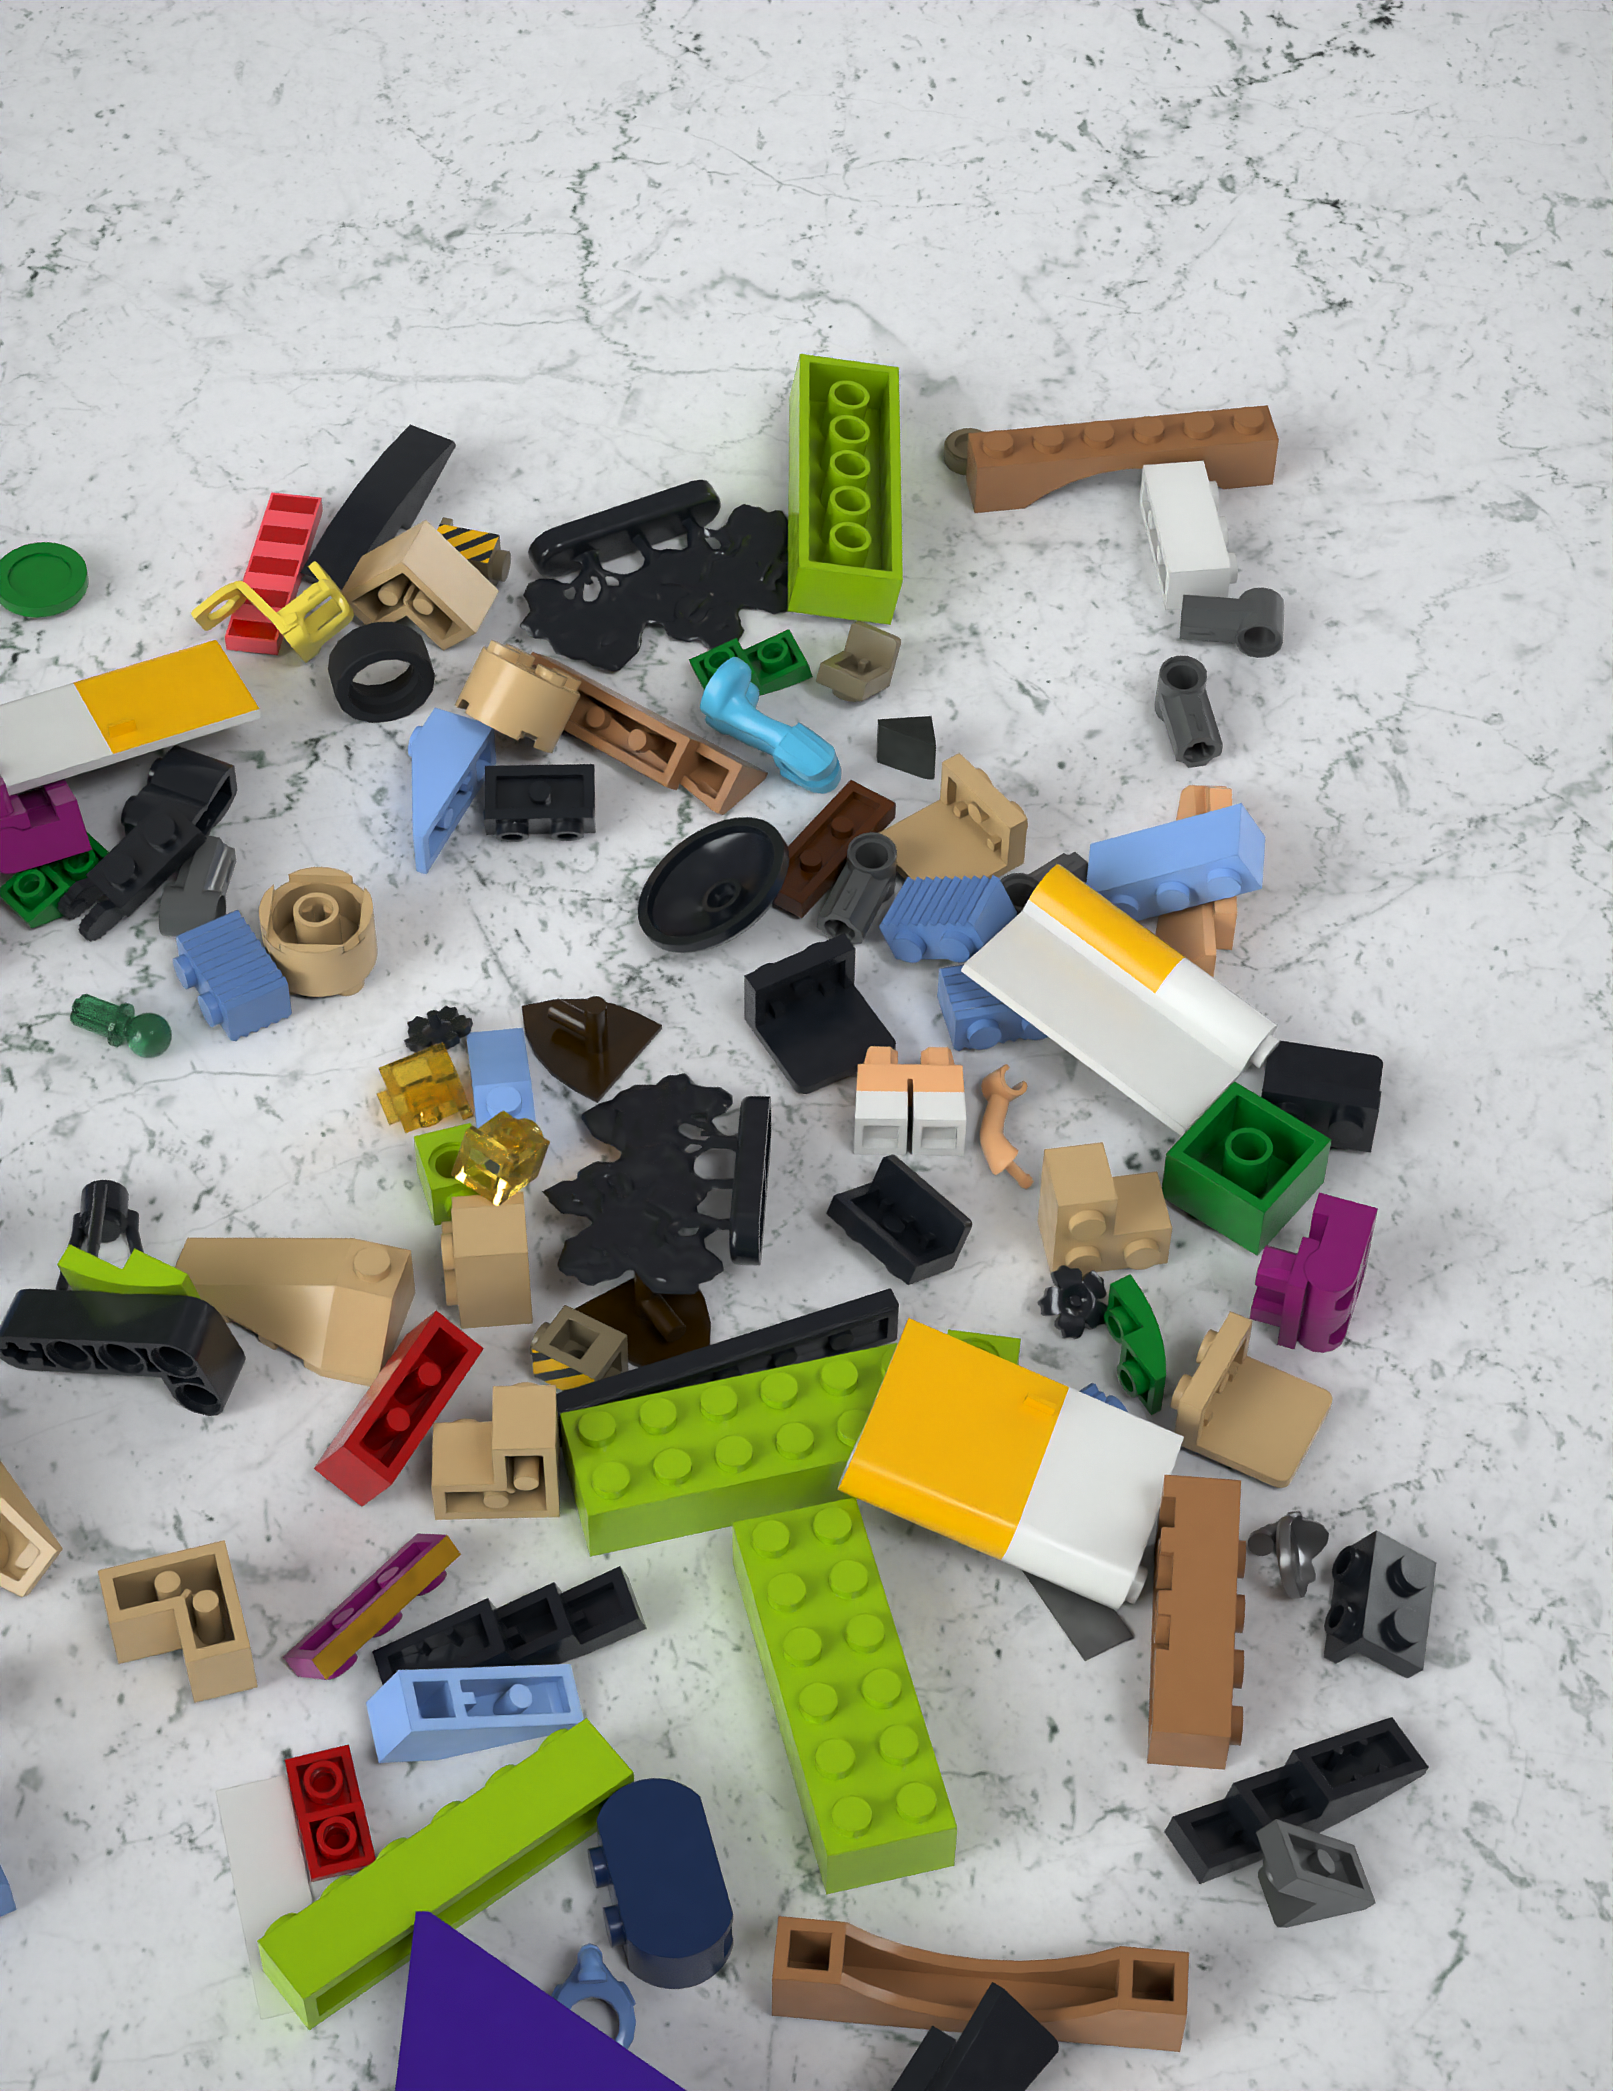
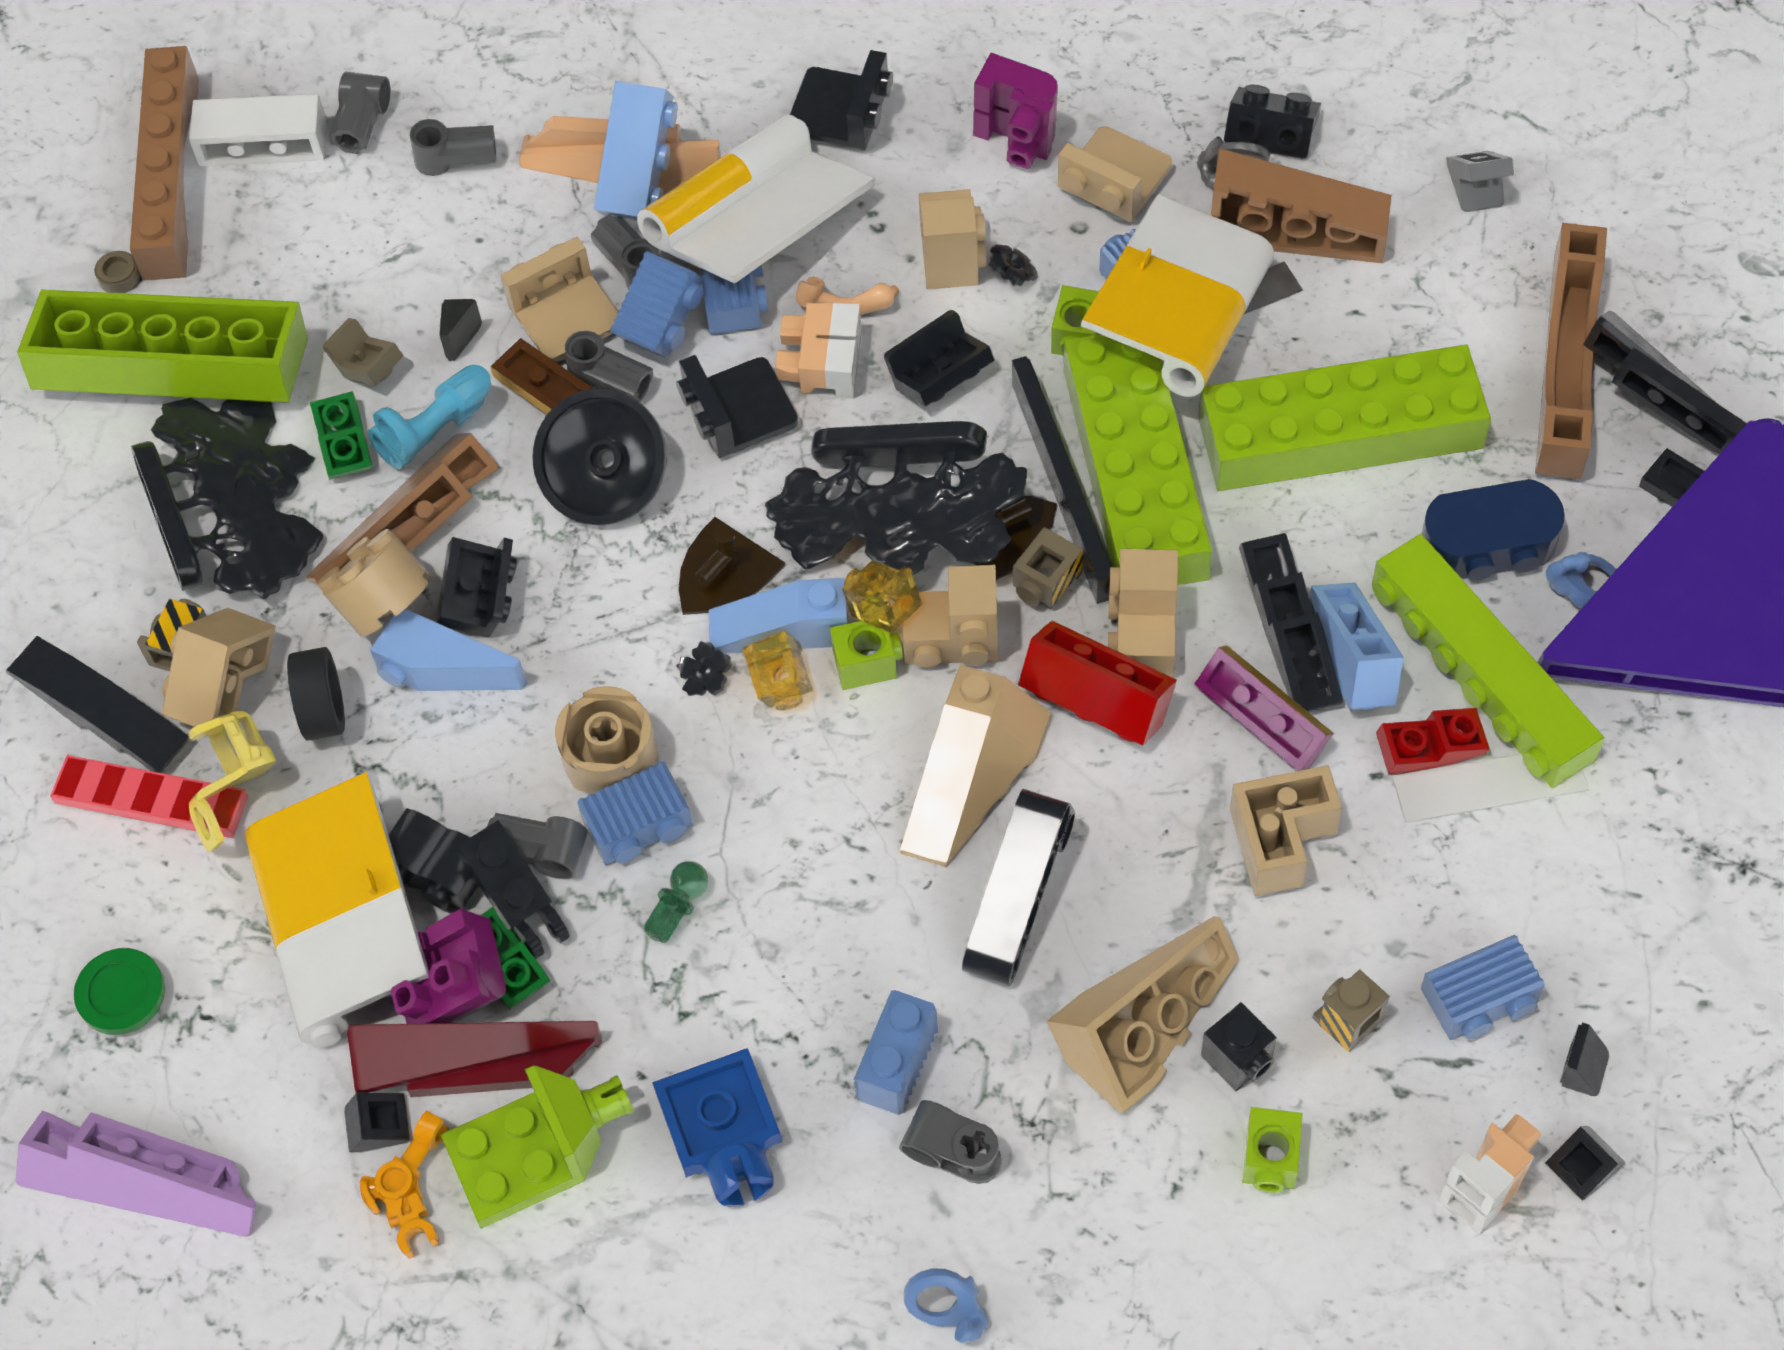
camera: 80 degrees left, 10 degrees up
(102, 1219) = (880, 905): black plant -> none
(139, 1275) = (979, 864): lime slope -> none
(1142, 1349) = (1067, 223): green slope -> none
(1245, 1168) = (913, 145): green brick -> none
(1312, 1790) = (1418, 180): black slope -> none

